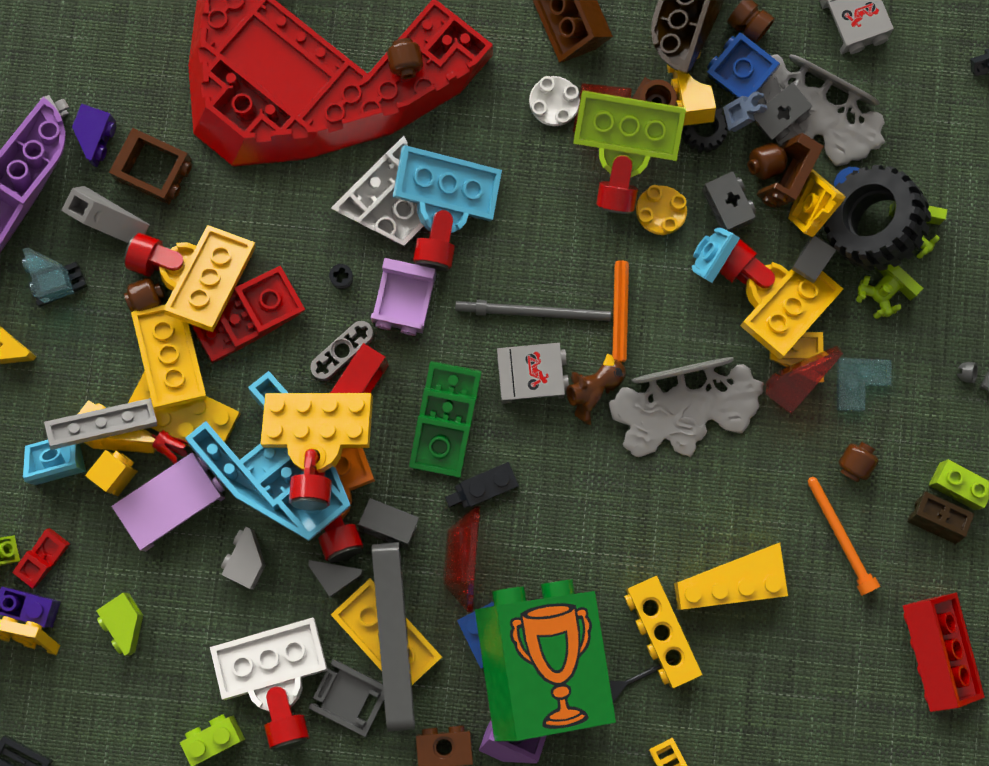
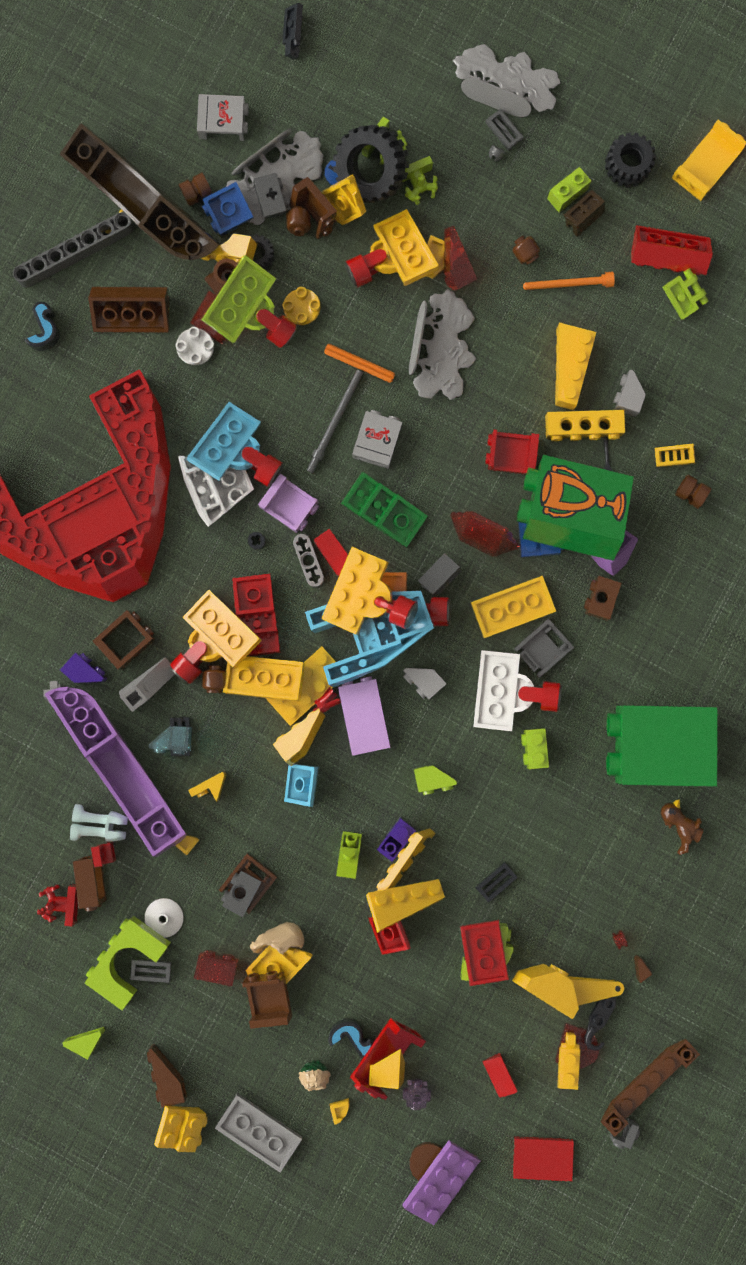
camera: 65 degrees left, 5 degrees up
(41, 558) = (366, 818): red slope -> none
(100, 424) = (294, 740): light grey plate -> none
(112, 472) = (329, 745): yellow brick -> none
(334, 577) = (460, 626): dark grey slope -> none
(393, 637) = (517, 600): dark grey beam -> none
(405, 58) = (125, 432): reddish brown head -> none
(483, 486) = (440, 502): black hinge -> none
(587, 551) = (512, 452): none -> red panel
(588, 389) = (404, 405): reddish brown animal -> none
(713, 253) = (348, 283): medium azure tile -> none
(727, 216) = (306, 259): dark grey brick -> none
(727, 678) = (631, 394): none -> light grey slope
(741, 111) = (258, 221): sand blue plate -> none
(813, 258) = (378, 218): dark grey slope -> none
(853, 377) = (469, 229): clear light blue tile -> none
(886, 689) = (681, 297): none -> lime plate

